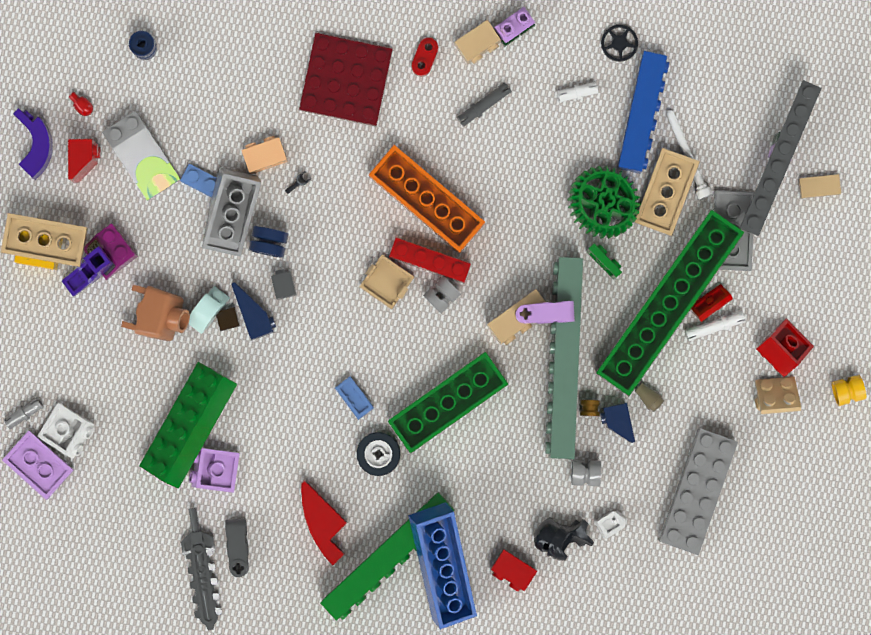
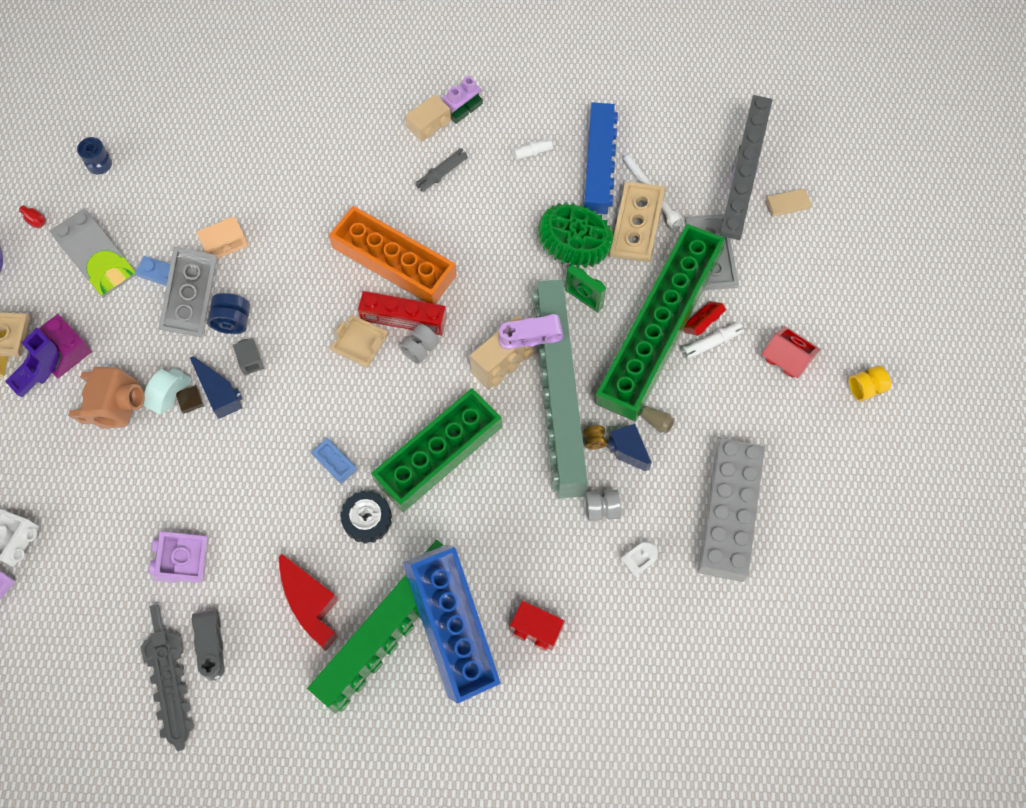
camera: 10 degrees left, 20 degrees down
(82, 158) = (28, 258): red slope -> none
(188, 425) = (143, 509): green brick -> none
(300, 181) = (260, 257): black hand -> none
(345, 79) = (301, 166): dark red plate -> none
(425, 57) = (379, 134): red plate -> none
(555, 538) = (580, 581): black piece -> none
(619, 43) = (566, 106): black wheel -> none
(777, 395) = (795, 397): tan piece -> none

